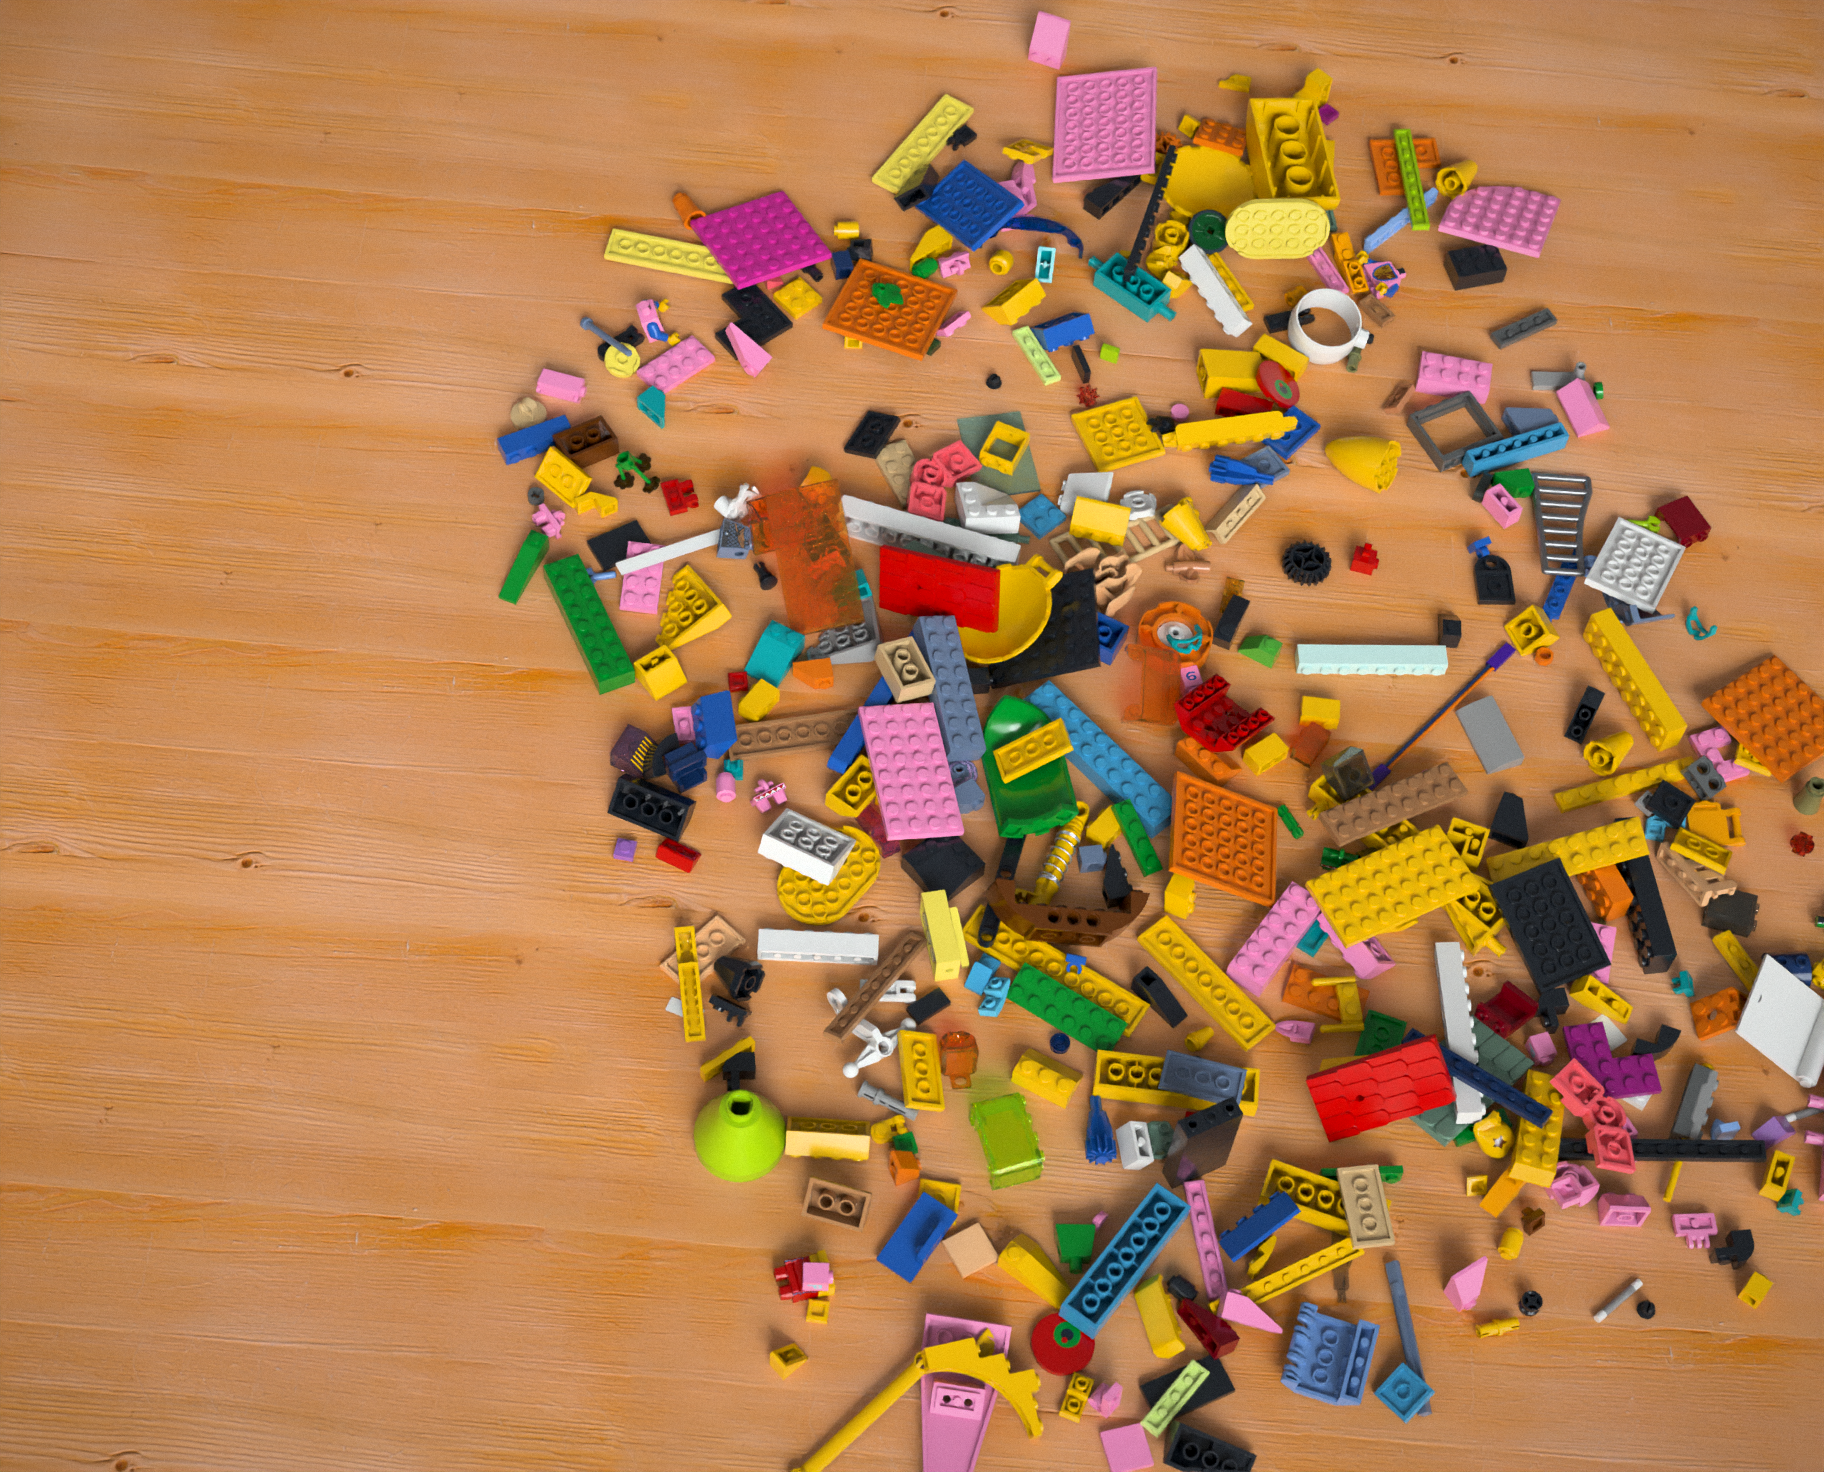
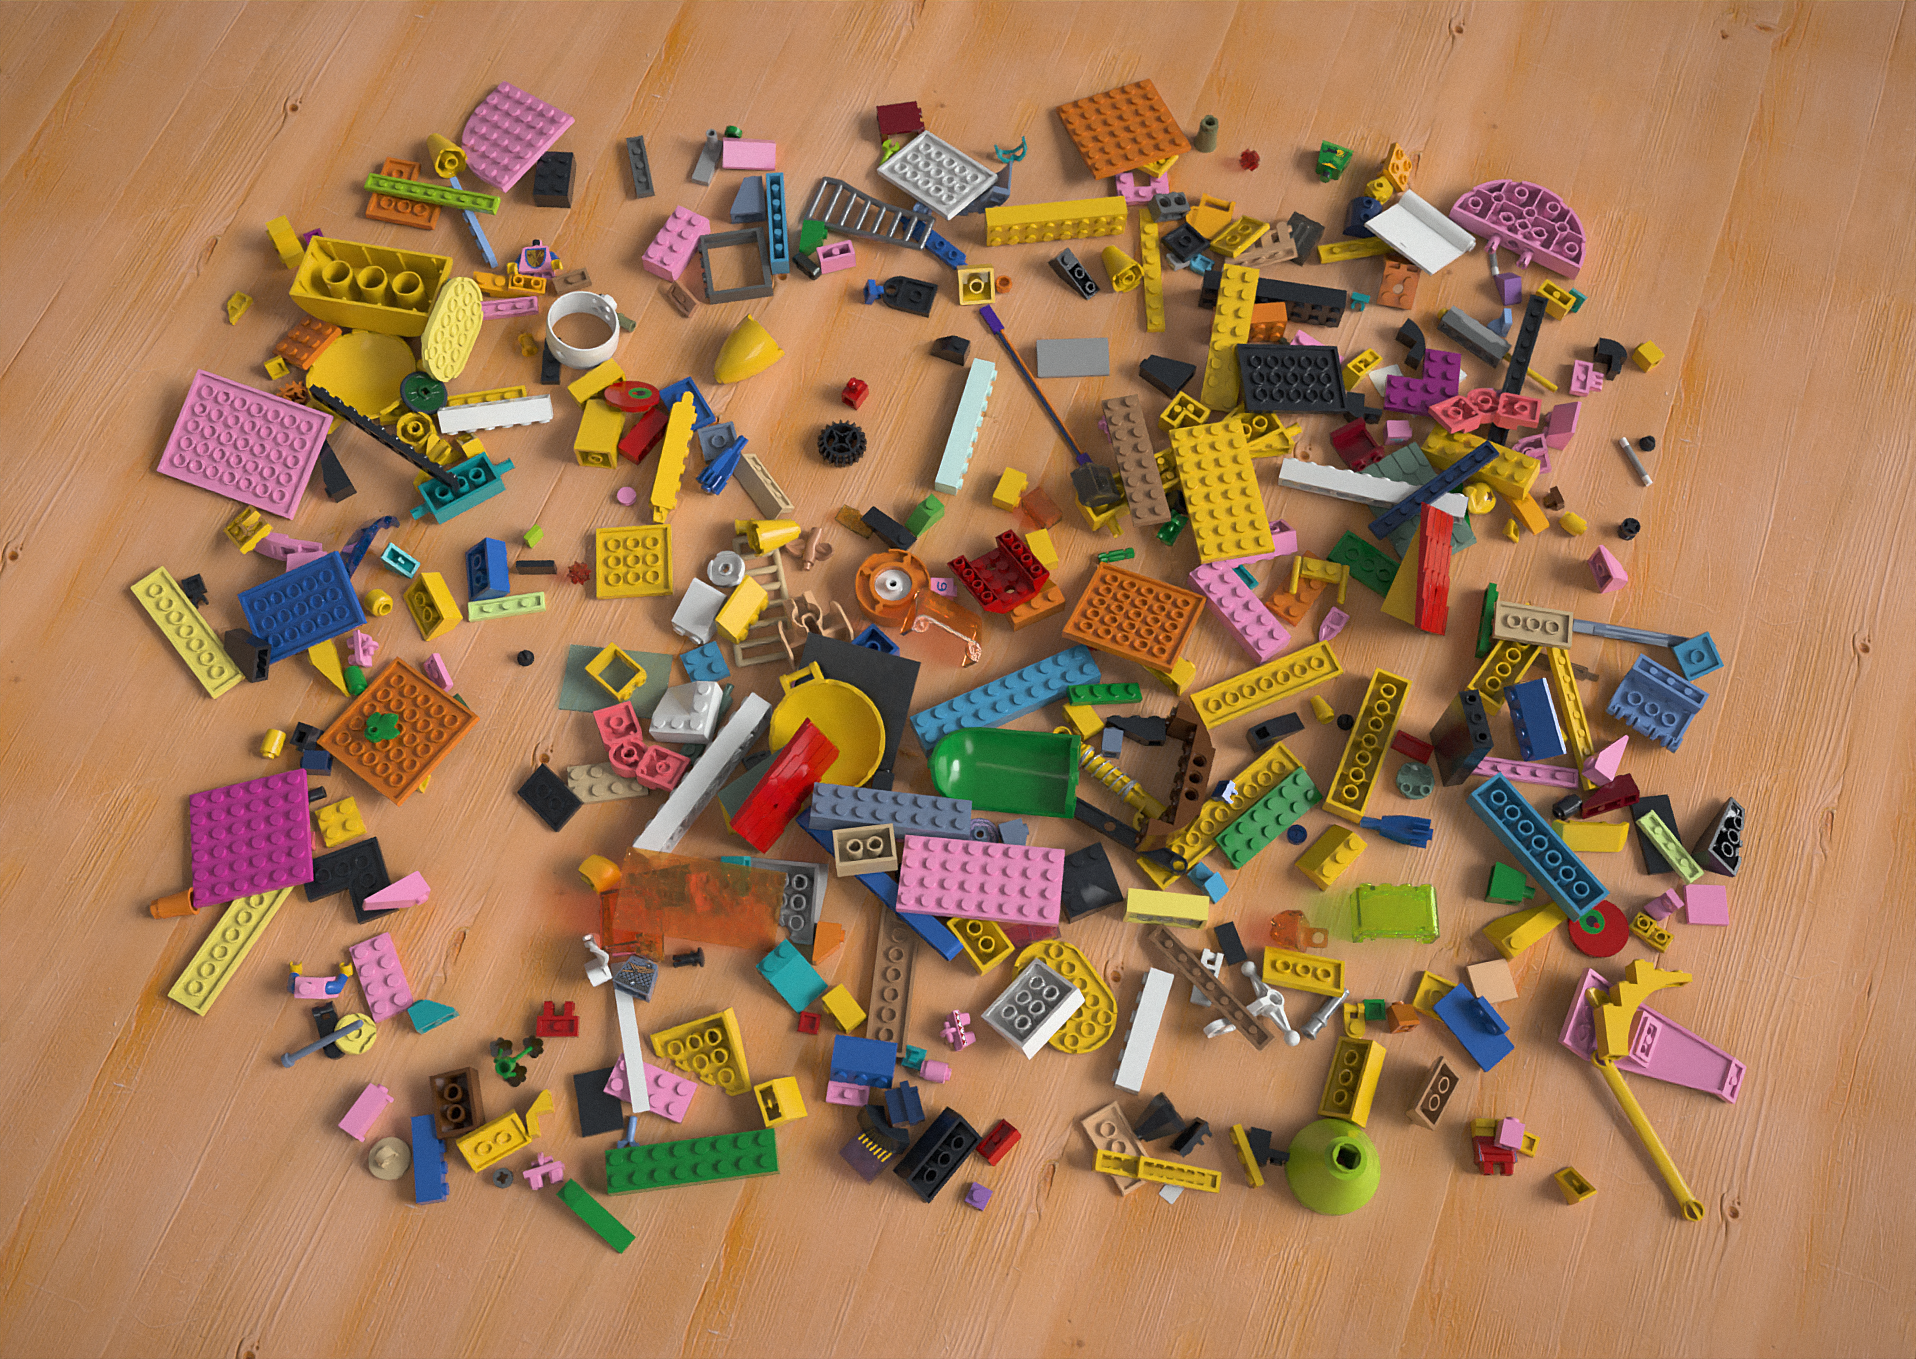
camera: 70 degrees left, 10 degrees up
(959, 937) = (1173, 889): light yellow tile -> none
(996, 994) = (1238, 878): medium azure slope -> none
(1033, 750) = (990, 756): yellow plate -> none
(1049, 40) = (110, 460): bright pink slope -> none
(1099, 1219) = (1484, 856): bright pink tile -> none
(1134, 1145) = (1422, 801): white brick -> none
(1162, 423) = (638, 515): black plate -> none
(1174, 642) = (915, 574): teal helmet -> none
(1201, 1078) = (1378, 719): sand blue tile -> none
(1497, 1327) = (1645, 562): yellow pin -> none

